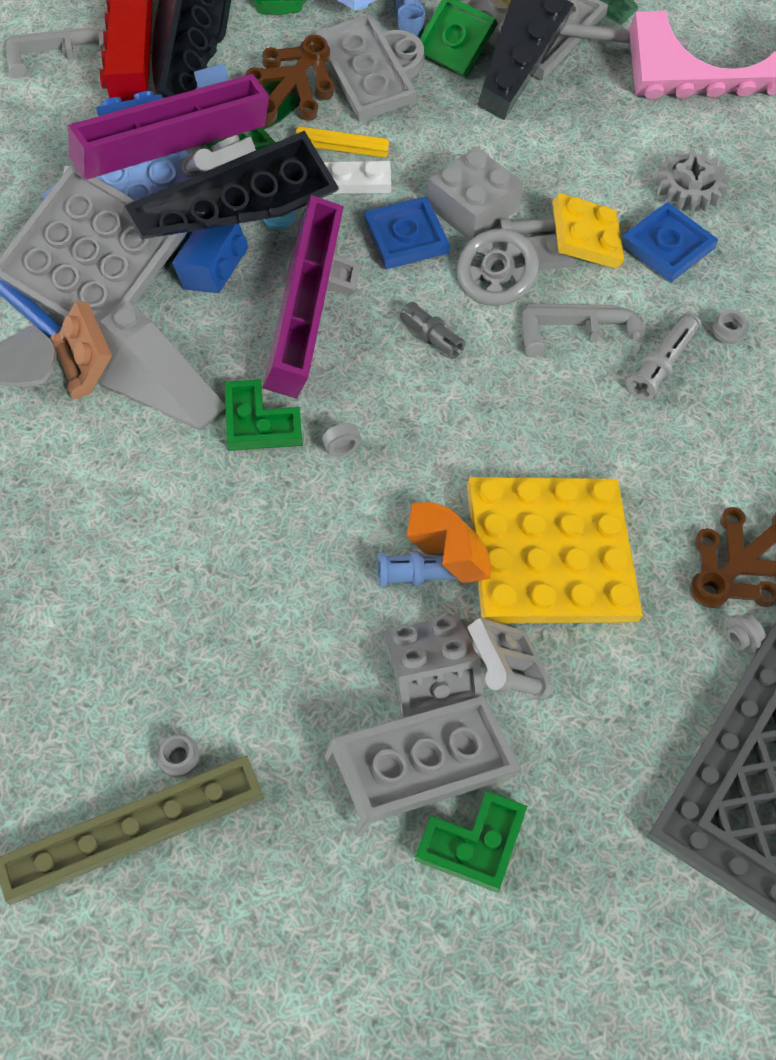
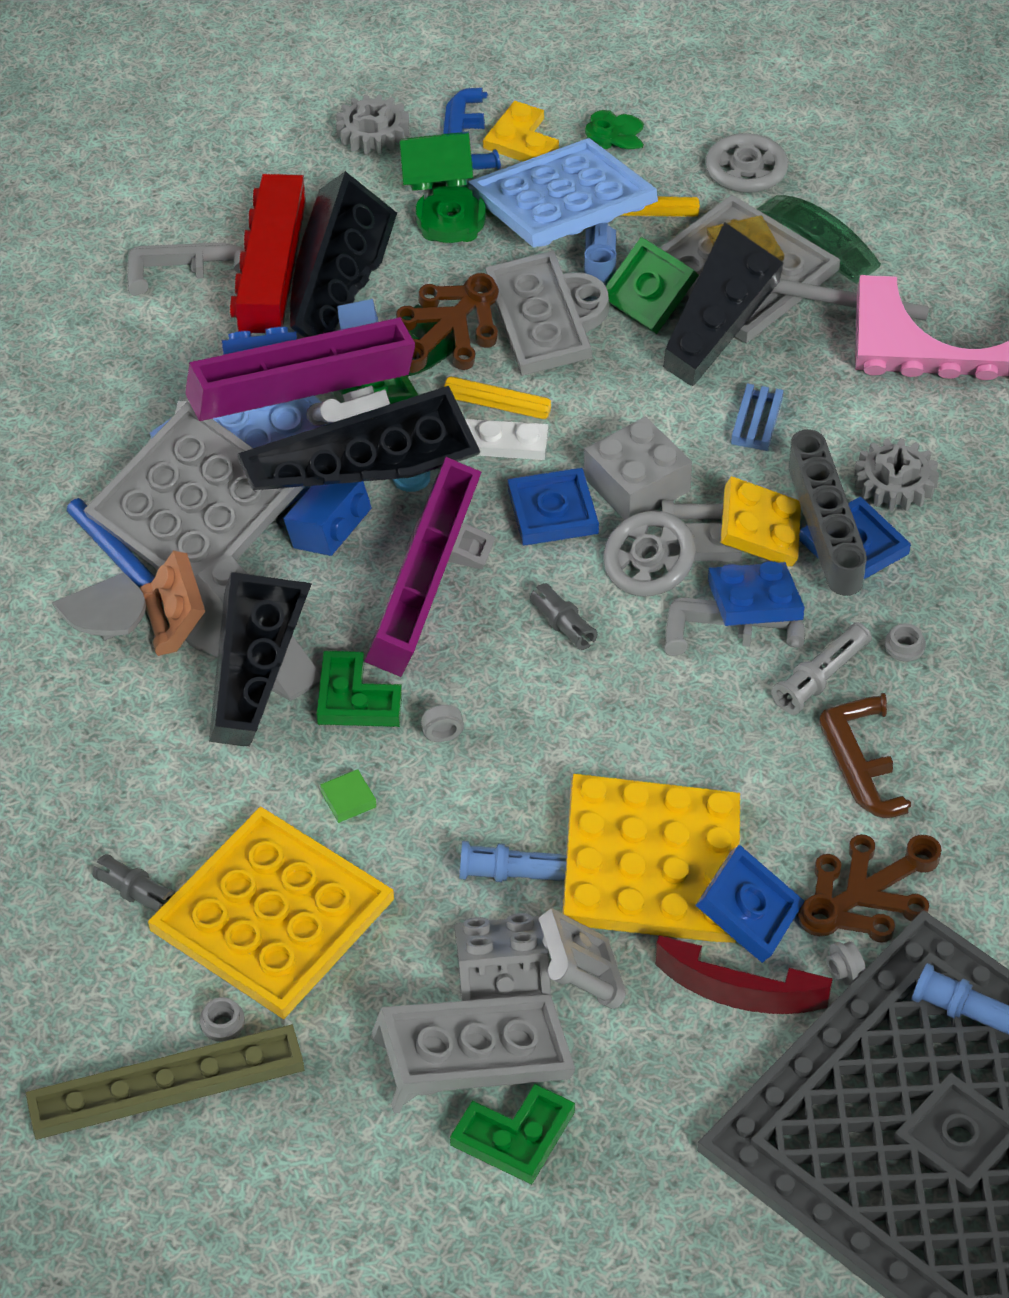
camera: 10 degrees right, 10 degrees down
(77, 626) = (132, 883): none -> dark grey pin
(160, 383) = (253, 641): none -> black wedge
(210, 640) = (271, 911): none -> yellow plate
(265, 516) = (348, 795): none -> bright green tile
(441, 530) = (535, 830): orange brick -> none
(565, 123) = (762, 397): none -> medium blue tile
(595, 295) = (755, 593): none -> blue plate
(601, 652) = (741, 990): none -> dark red slope
(647, 218) = (827, 512): none -> dark grey beam
(652, 586) = (750, 903): none -> blue plate
(707, 438) = (854, 767): none -> reddish brown piece

